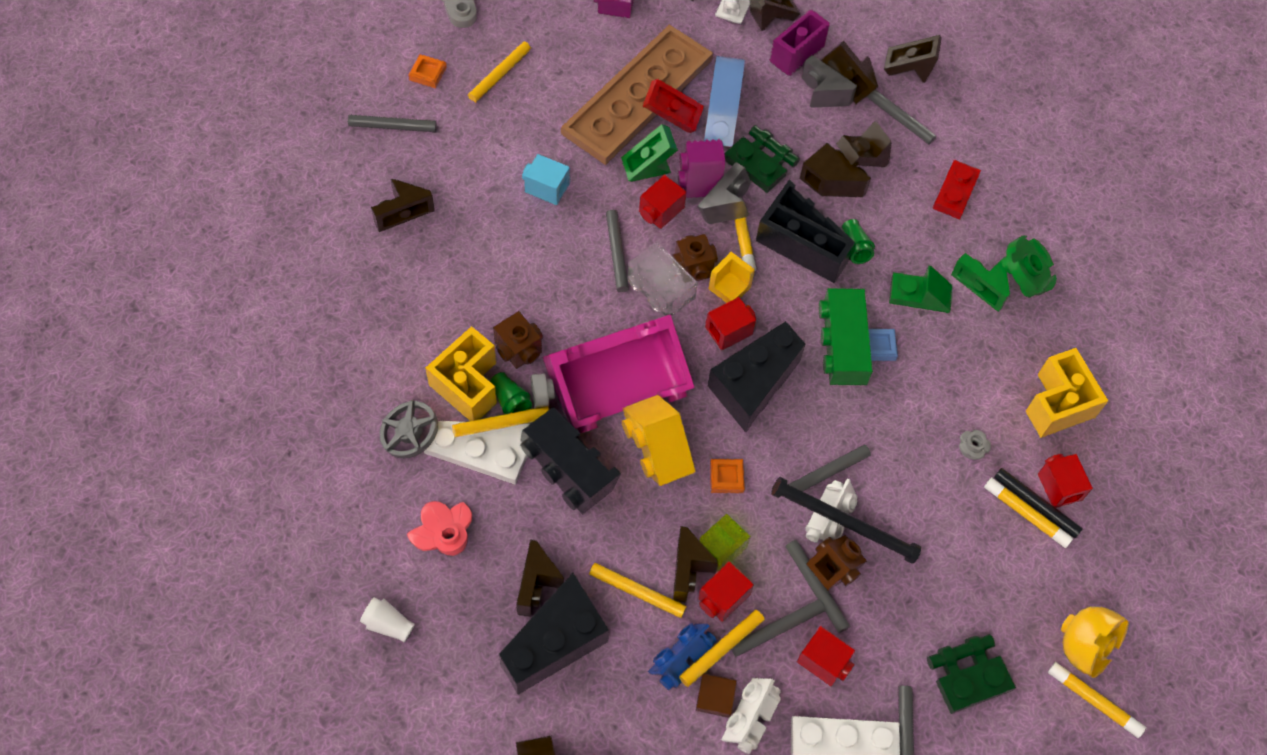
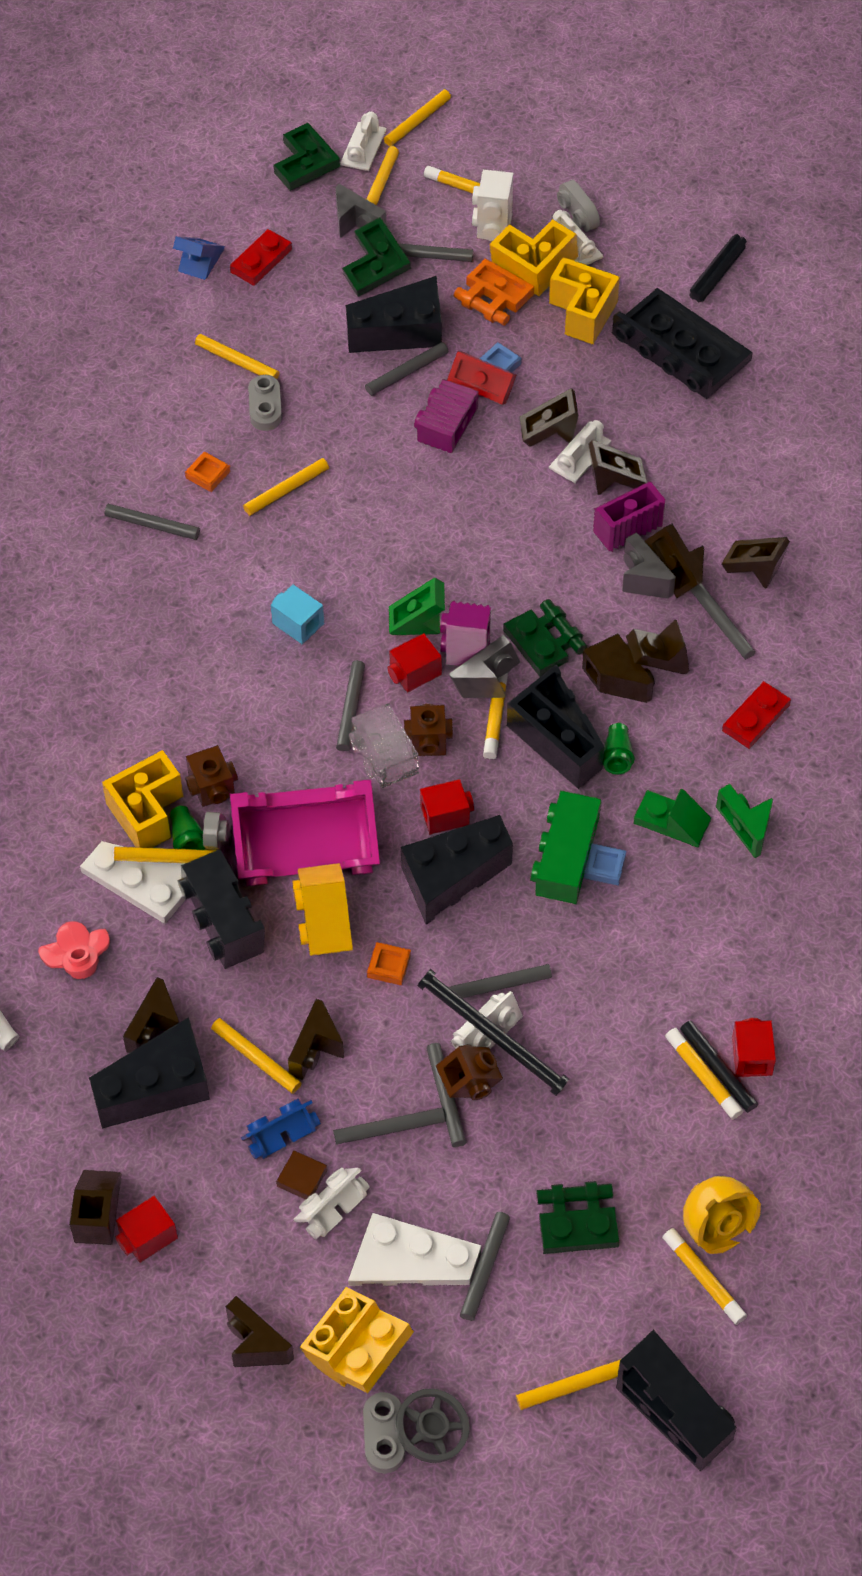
camera: 20 degrees right, 5 degrees down
(407, 205) = (140, 613): dark brown slope -> none
(408, 429) = (70, 843): dark grey wheel -> none
(617, 109) = (429, 539): medium nougat plate -> none
(673, 105) = (461, 560): red plate -> none
(721, 648) = (321, 1129): yellow bar -> none
(724, 99) = (521, 554): medium blue arch -> none
(724, 592) = (343, 1076): red brick -> none
(725, 540) = (359, 1027): clear neon green panel -> none
(731, 278) = (461, 758): yellow panel -> none
(827, 657) = (427, 1163): red brick -> none
(971, 451) = (667, 998): light grey plate -> none
(1029, 266) = (794, 829): green plate -> none
(1070, 394) = (790, 964): yellow brick -> none

